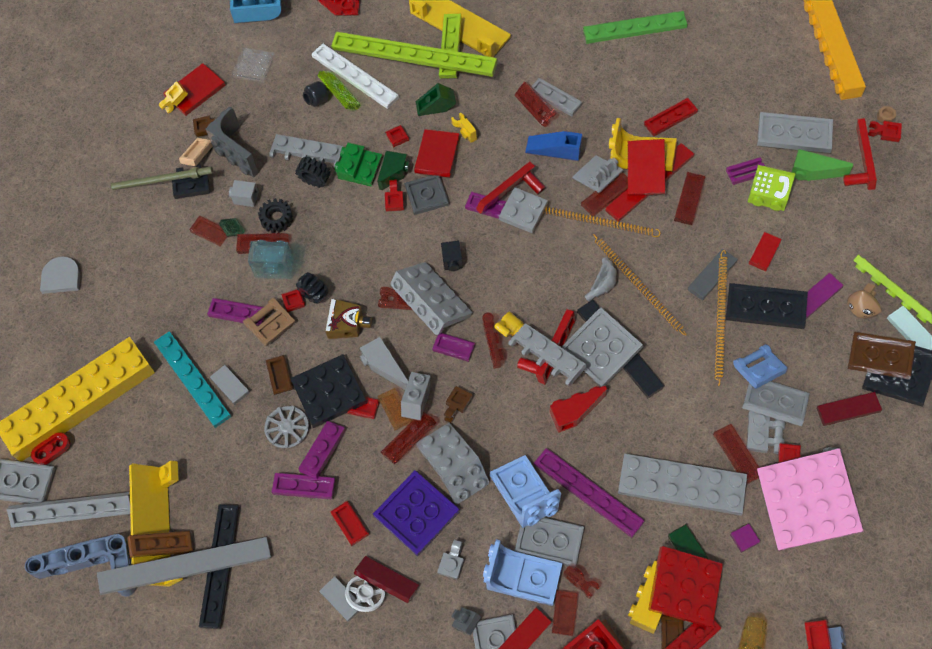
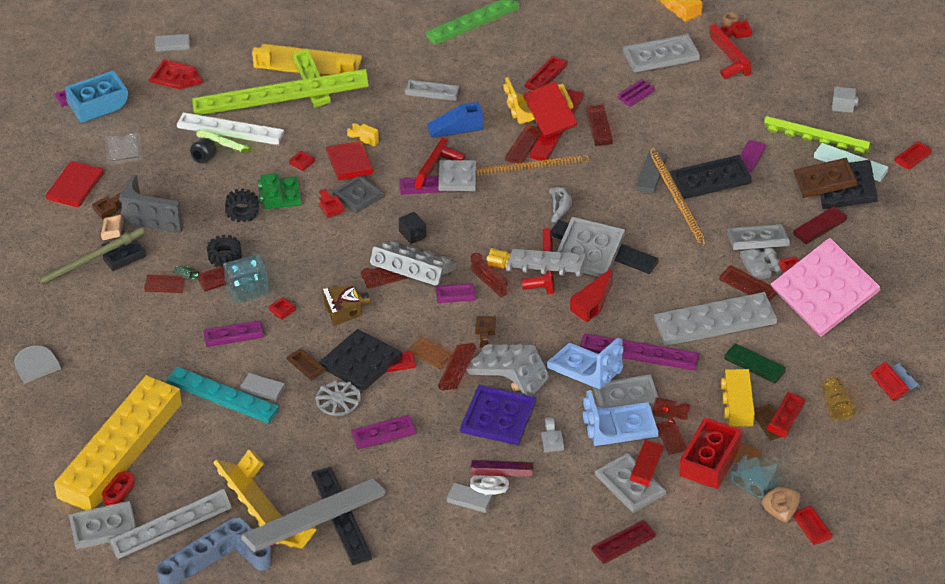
camera: 30 degrees left, 20 degrees down
(159, 544) = (276, 509): dark orange tile -> none
(174, 96) = (61, 190): yellow plate -> none
(244, 193) = (182, 243): light grey brick -> none
(273, 326) = (276, 331): medium nougat plate -> none
(305, 148) = (215, 195): light grey hinge -> none
(312, 288) = (298, 288): black gear -> none
(321, 450) = (383, 400): magenta plate -> none
(349, 523) = (442, 444): red tile -> none
(381, 362) = (400, 322): light grey slope -> none
(393, 168) = (315, 180): dark green slope -> none
(415, 396) = (446, 331): light grey brick -> none
(436, 100) = (323, 122): dark green slope -> none
(465, 620) = (590, 469): dark grey tile -> none
(535, 103) = (418, 98): clear red plate -> none
(598, 173) = (508, 130): light grey hinge -> none
(641, 284) = (591, 197): light orange piece -> none
(685, 587) = (761, 376): red plate -> none
(745, 538) = (788, 337): magenta tile -> none
(763, 371) = (737, 218): medium blue plate -> none
(765, 251) = (686, 143): red tile -> none
(771, 188) = (665, 93): lime slope -> none
(815, 166) = (693, 71): bright green slope -> none
(863, 302) = (789, 148): medium nougat piece -> none

